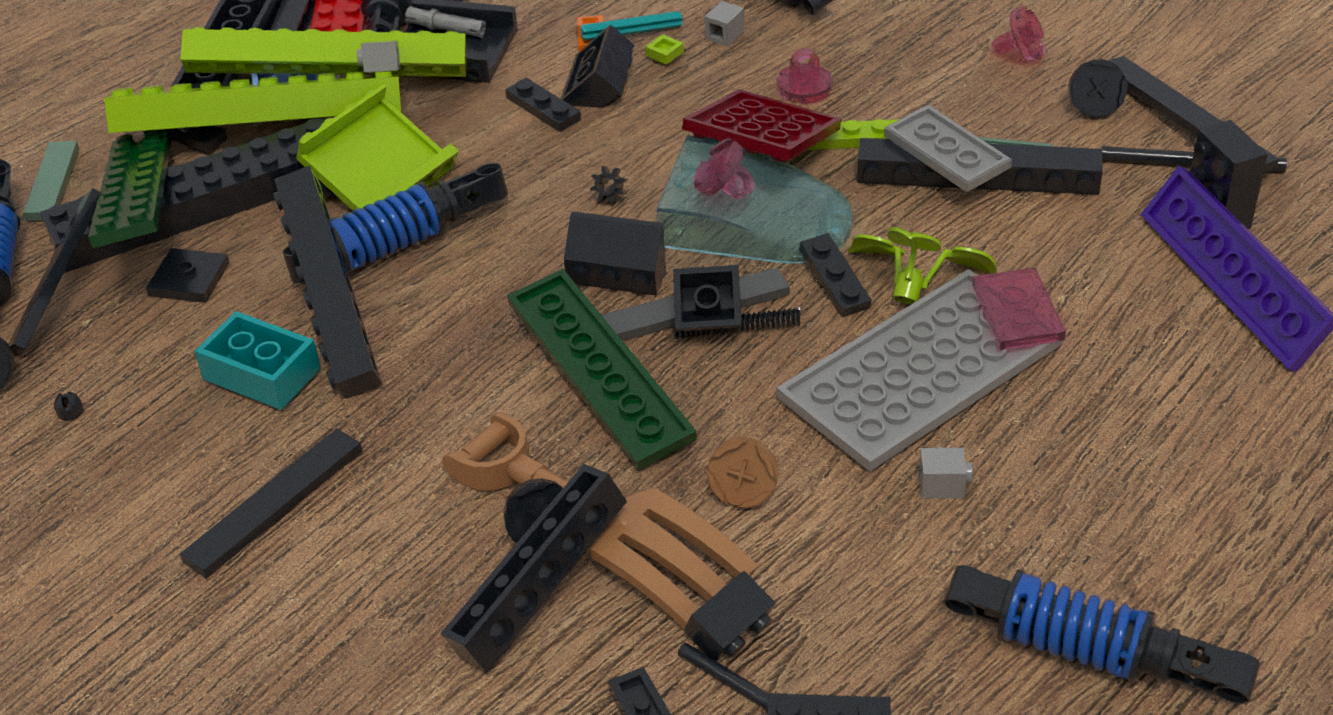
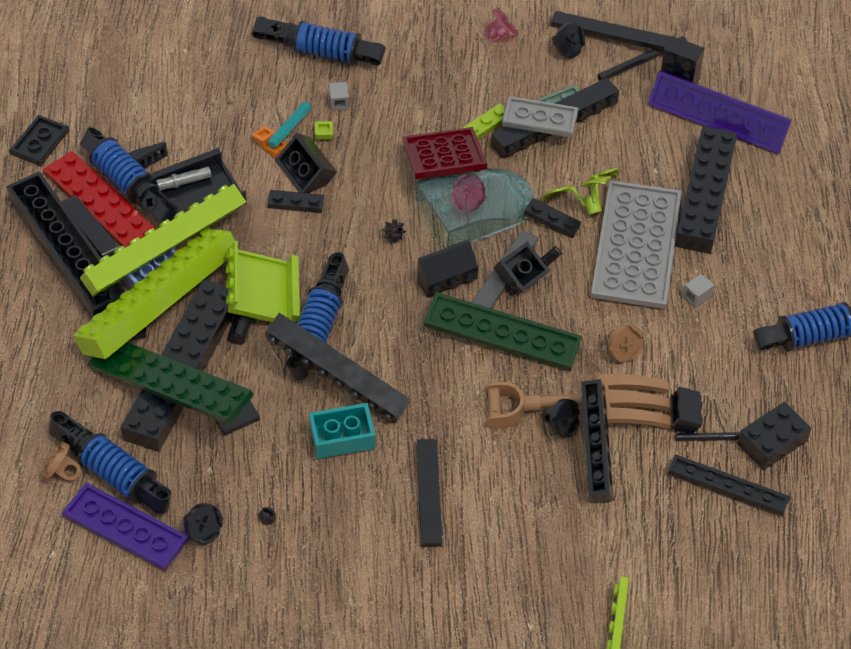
camera: 45 degrees left, 10 degrees up
(51, 178) = (77, 405): sand green tile -> none
(53, 273) = (179, 451): black tile -> none
(379, 56) = (208, 224): light grey brick -> none
(804, 81) = (417, 111): clear pink tile -> none
(1018, 308) = (653, 188): clear pink tile -> none
(1104, 353) = (706, 190): none -> black brick

